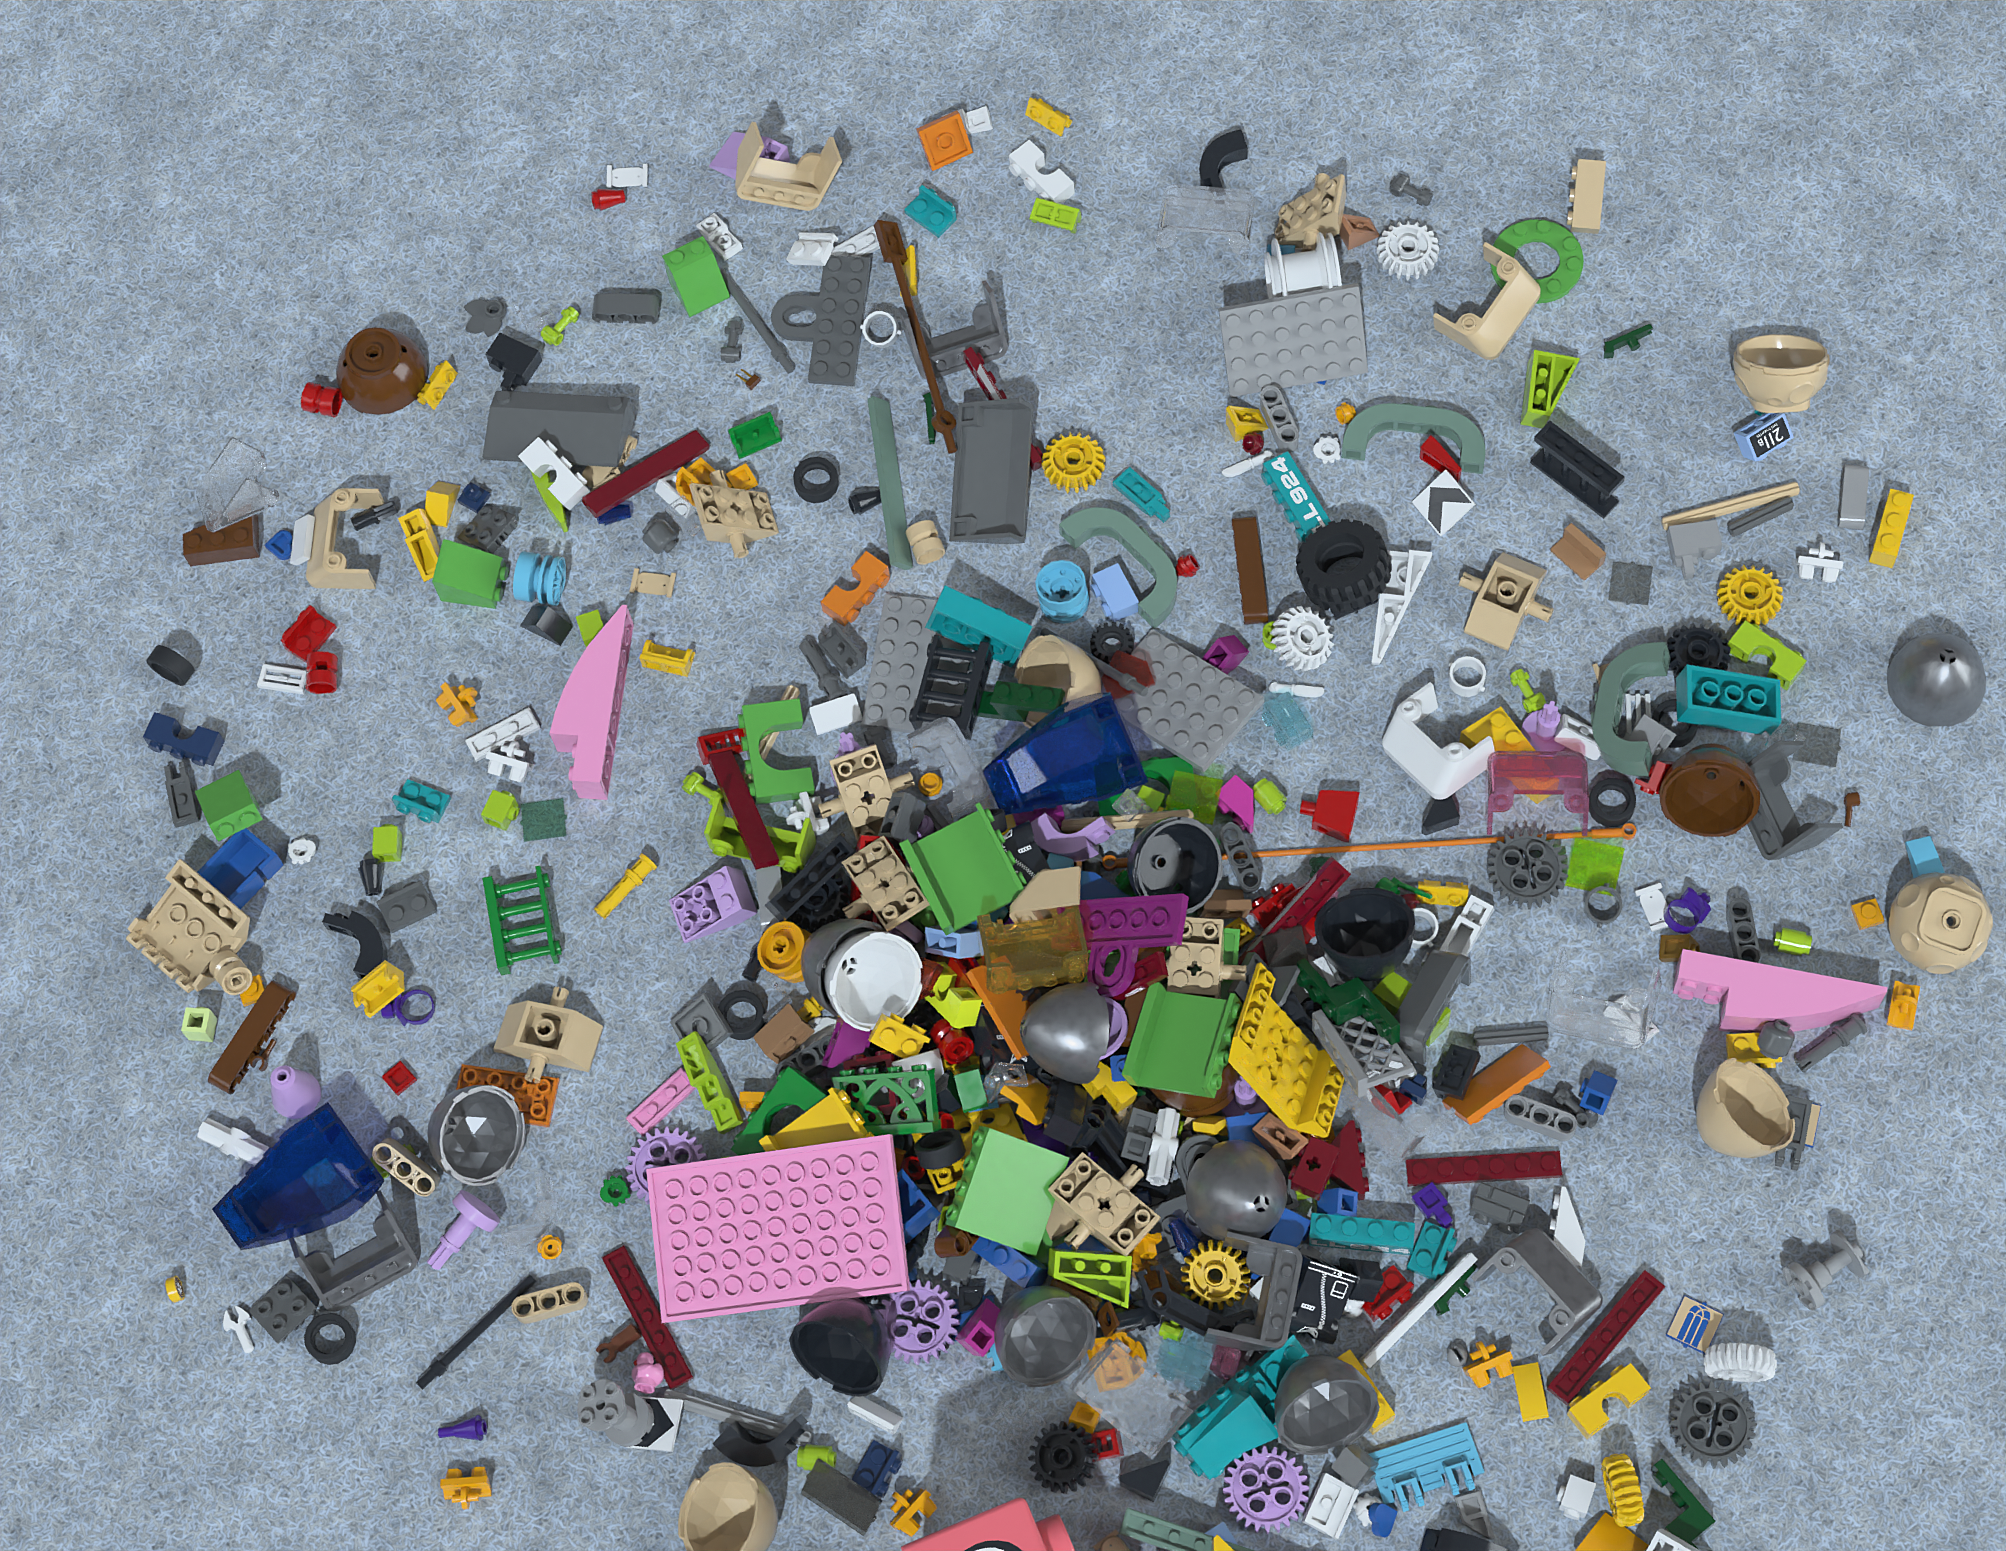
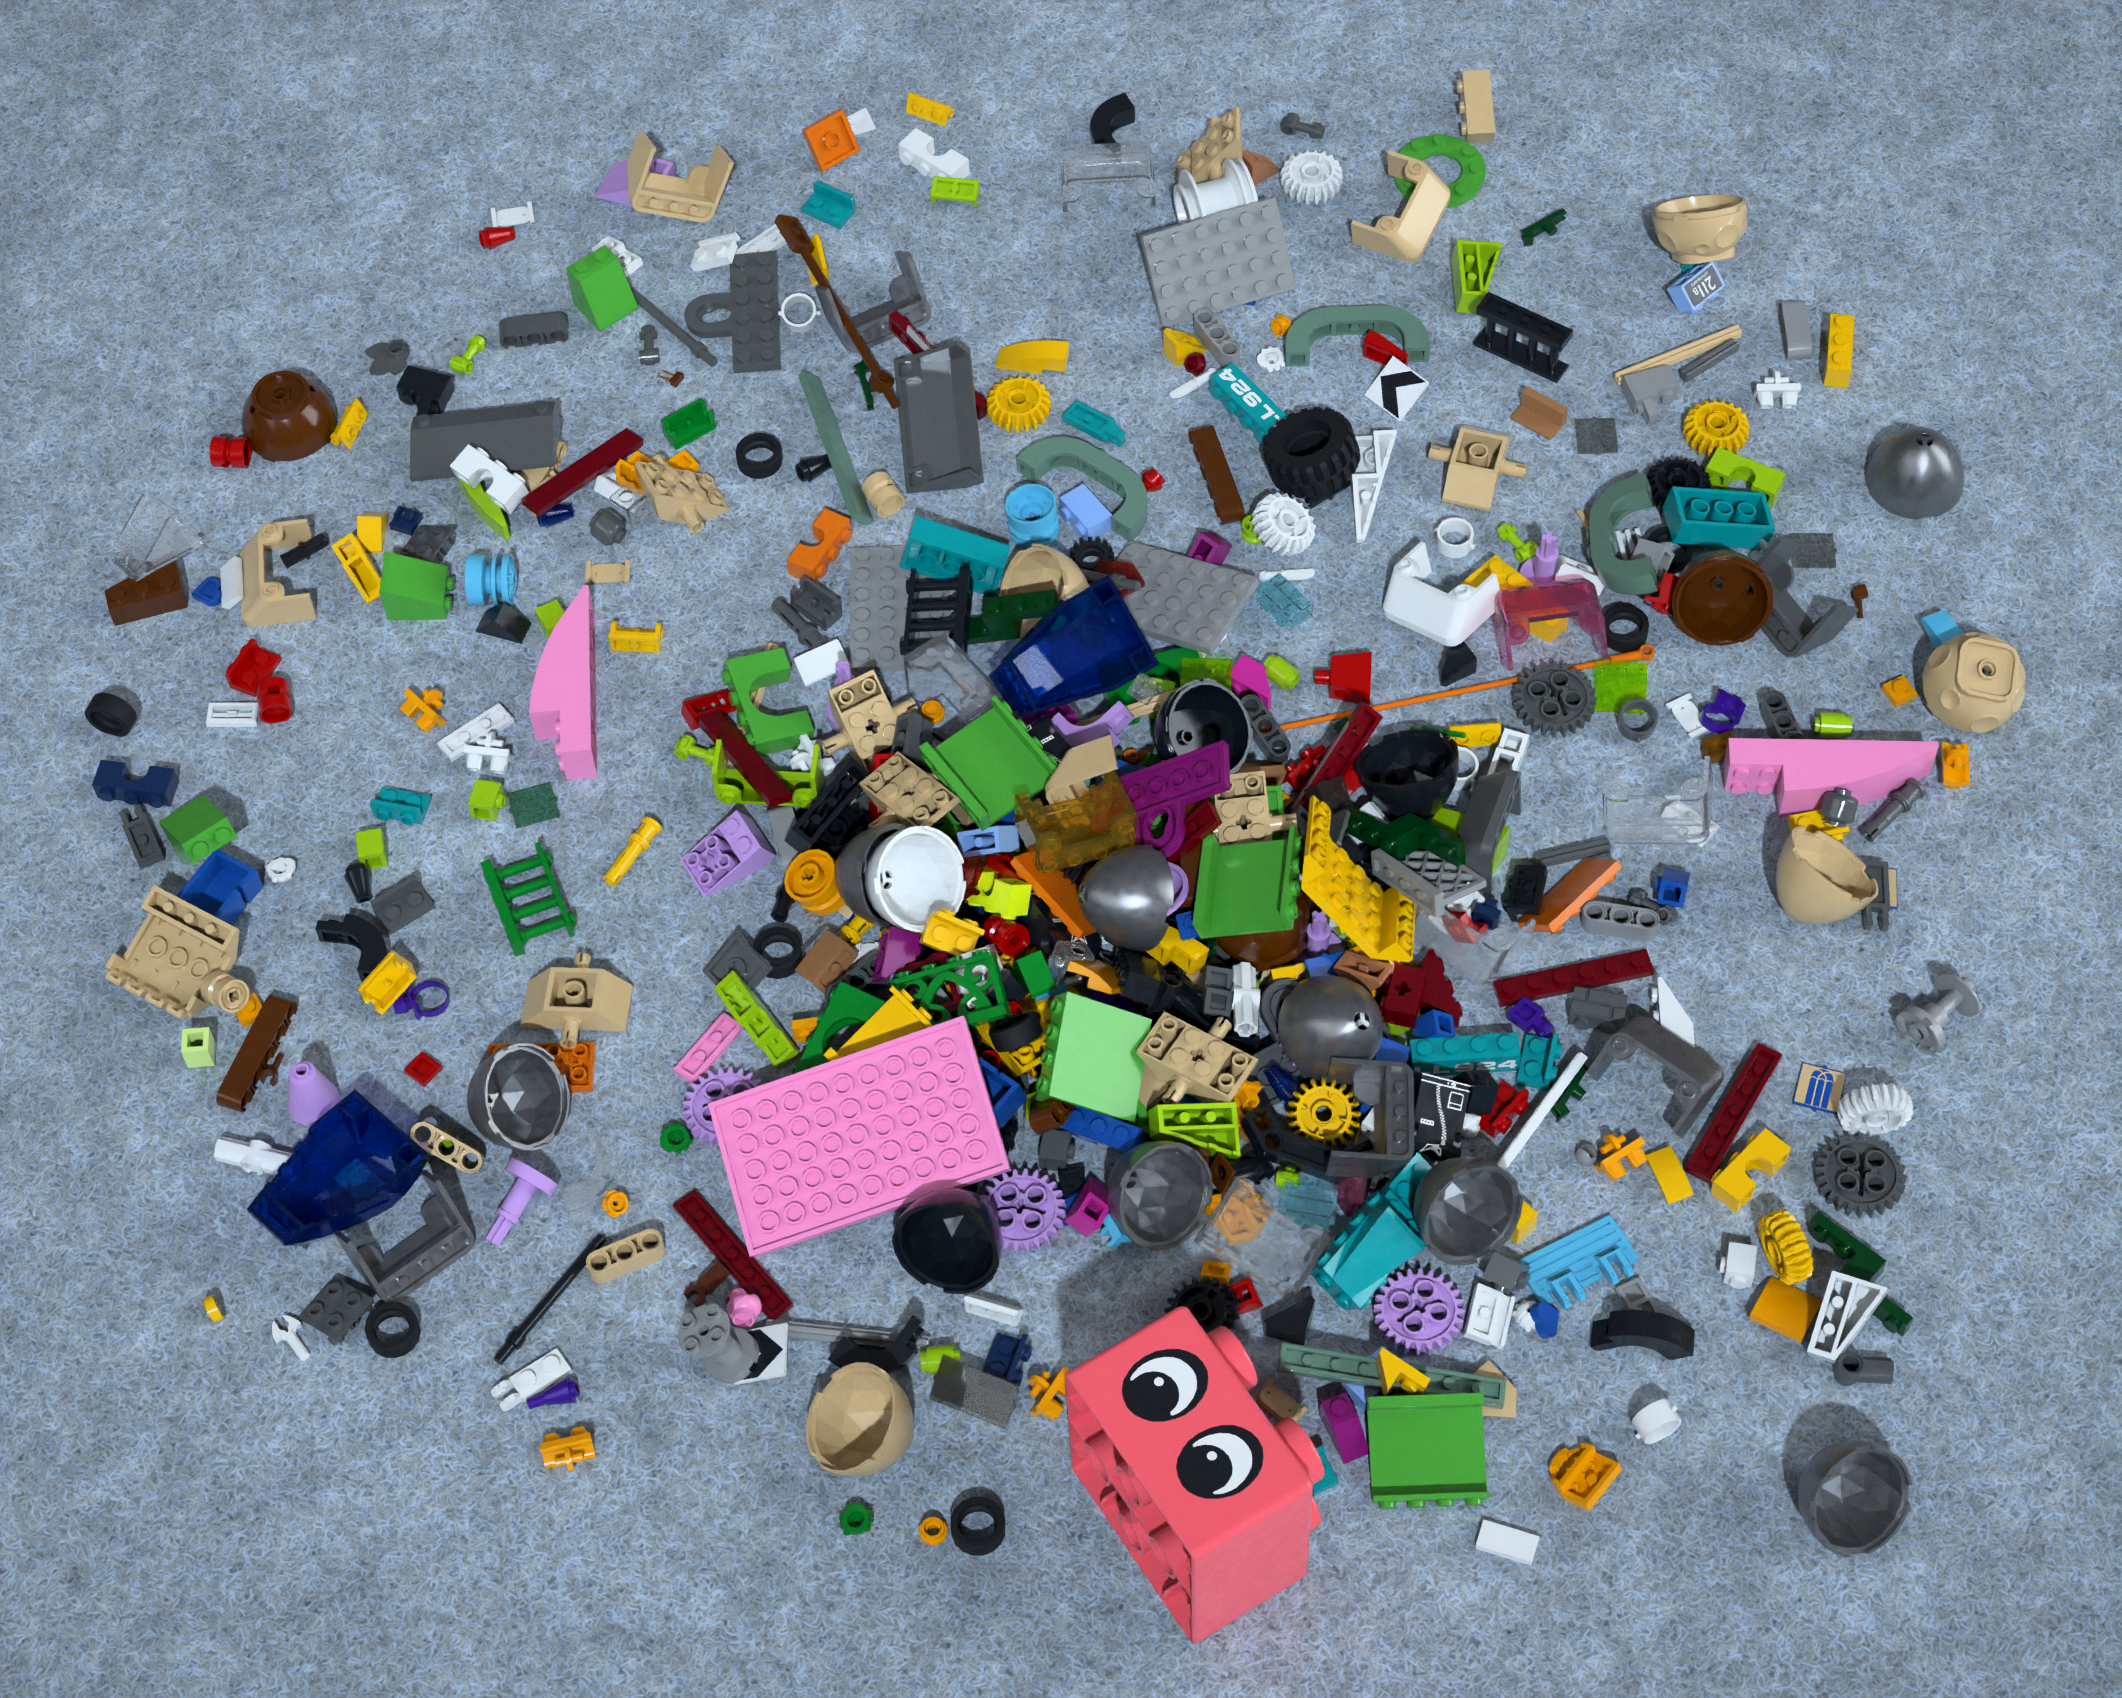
camera: 15 degrees left, 10 degrees down
(447, 1409) = (532, 1379): none -> white hinge
(1098, 412) = (1034, 356): none -> yellow slope

